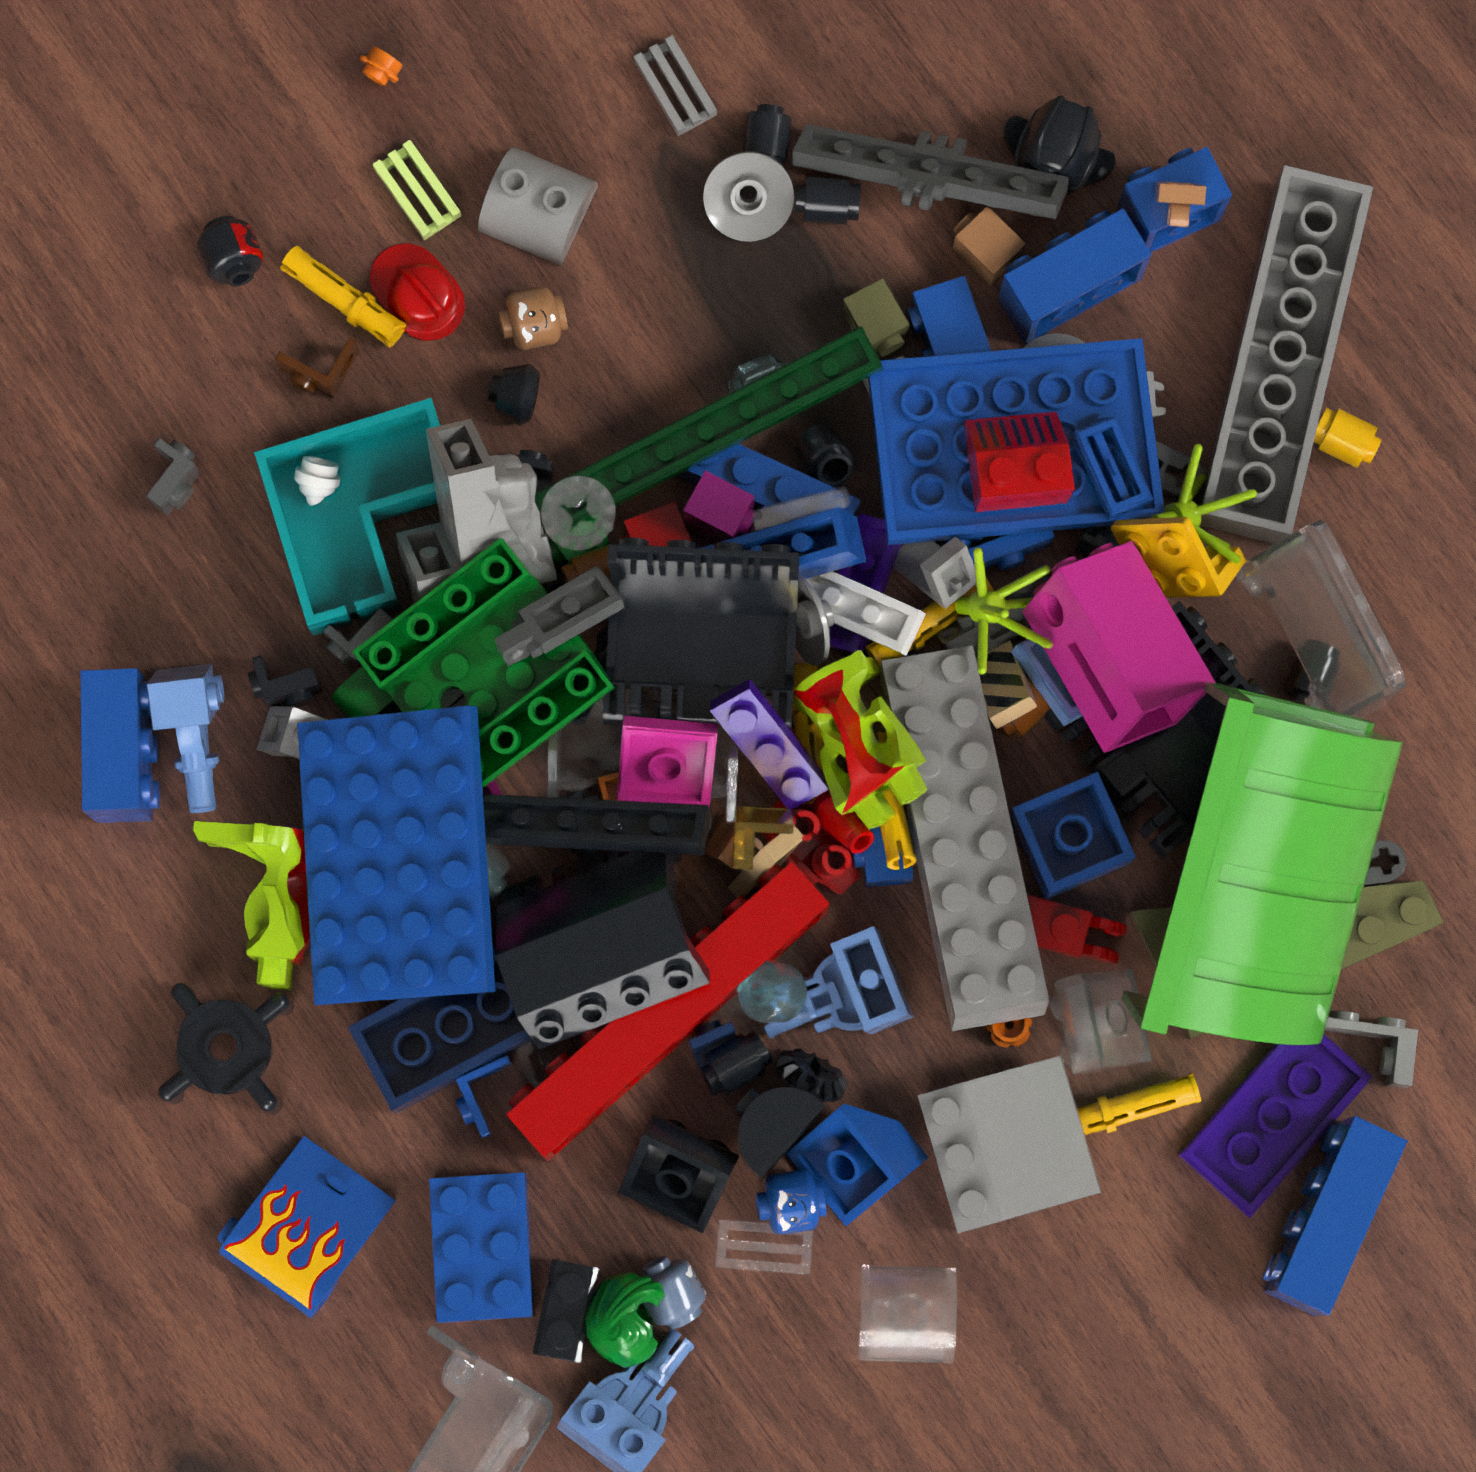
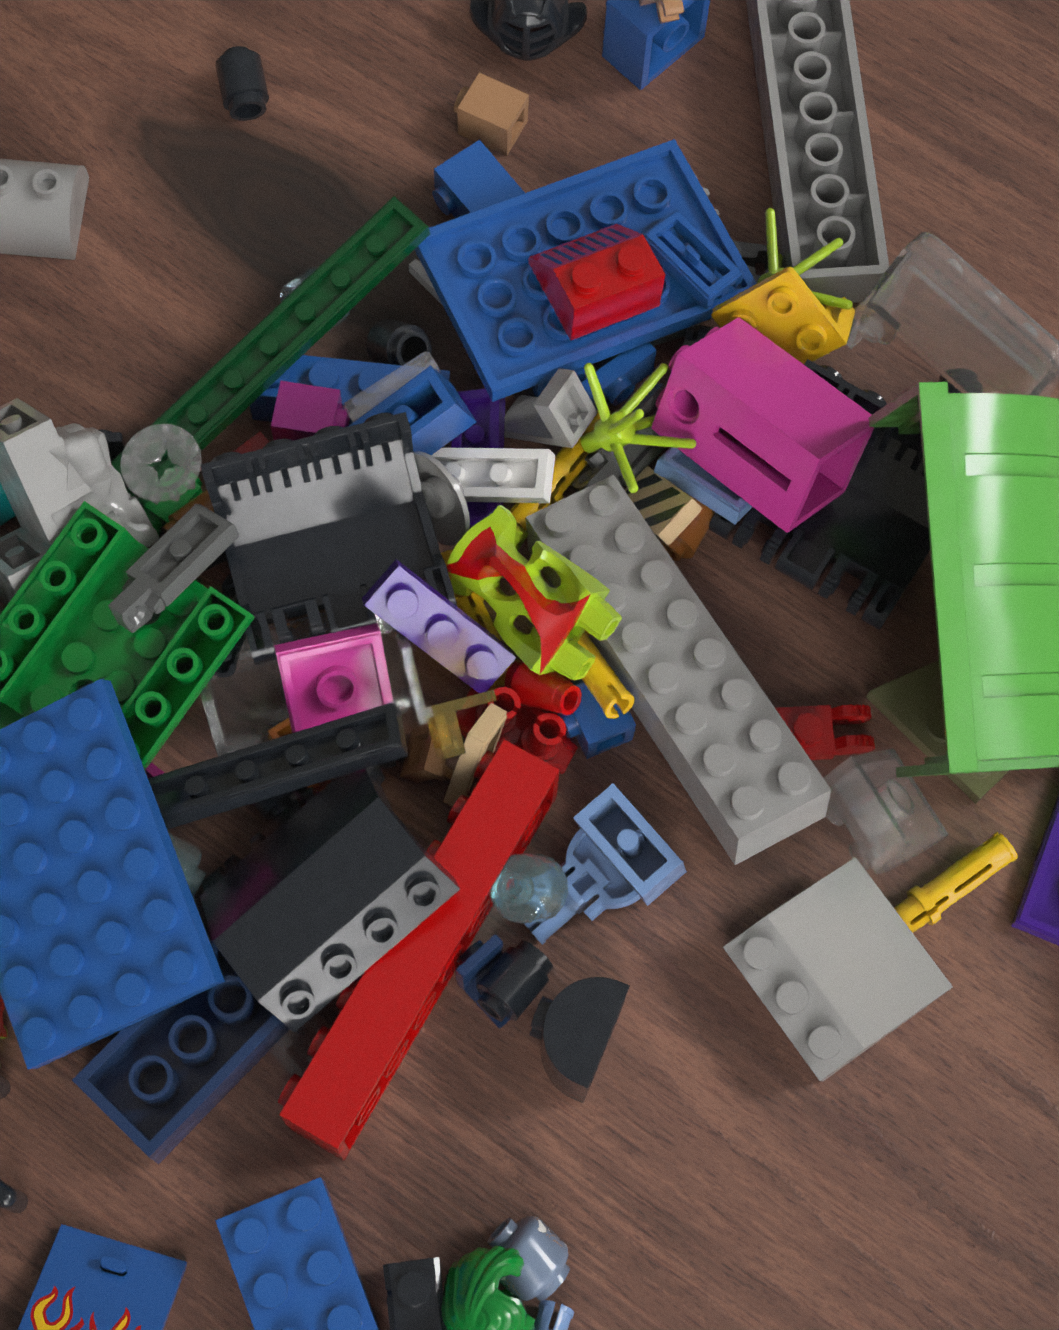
camera: 20 degrees left, 10 degrees down
(468, 1103) = (235, 1124): blue bracket -> none
(515, 393) = (63, 383): black cone -> none
(533, 318) = (59, 307): medium nougat head -> none
(657, 53) = (112, 42): light grey tile -> none
(678, 1173) = (492, 1121): black brick -> none
(724, 1244) = (657, 1162): clear tile -> none
(754, 217) = (261, 120): light grey dish -> none
(791, 1202) = (626, 1111): blue head -> none
(811, 1074) = (595, 961): black gear -> none
(828, 200) = (321, 118): black brick -> none
(857, 1158) = (678, 1041): blue slope -> none
(878, 315) = (409, 192): olive brick -> none
(907, 1314) = (795, 1193): clear brick -> none
(930, 171) = (412, 59): dark grey hinge -> none
(1016, 1036) = (788, 861): orange plate -> none
(1071, 835) = (785, 630): blue brick -> none
(1073, 274) = (586, 106): blue brick -> none
(1346, 437) = (905, 182): yellow brick -> none

